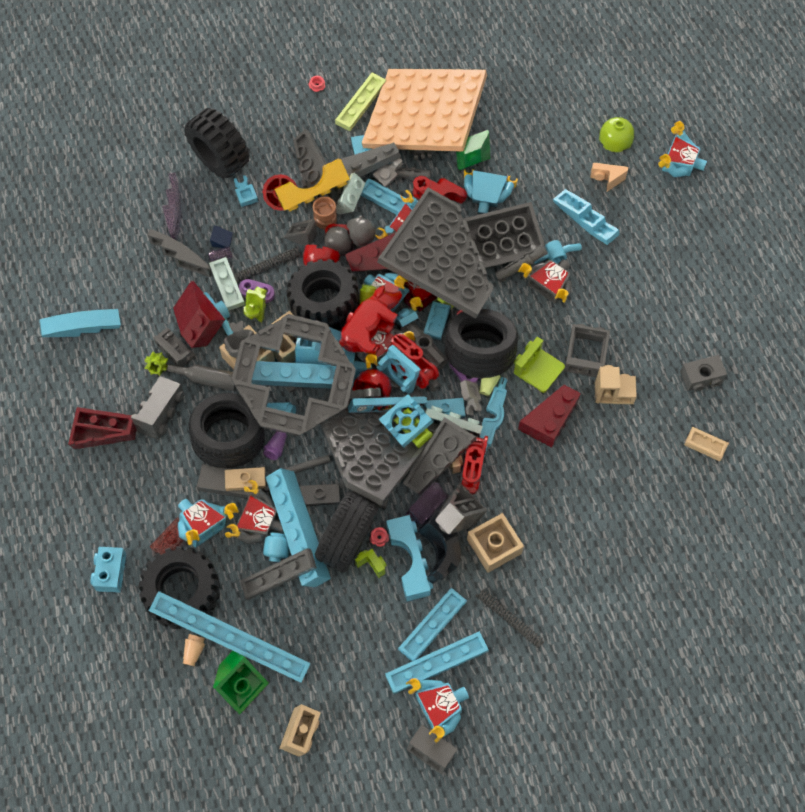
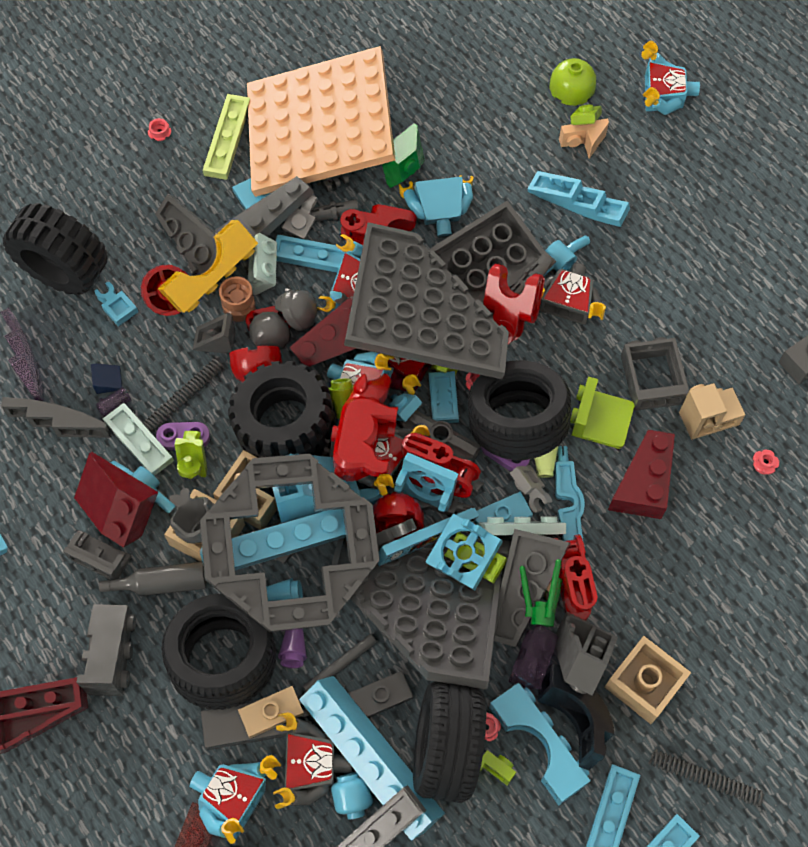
camera: 20 degrees left, 0 degrees up
(156, 363) = (80, 586): lime gear -> none
(443, 475) = (543, 612): none -> green plant
(503, 275) = (509, 307): none -> red piece
(614, 160) = (586, 115): none -> lime plate
(639, 438) = (763, 468): none -> coral plate

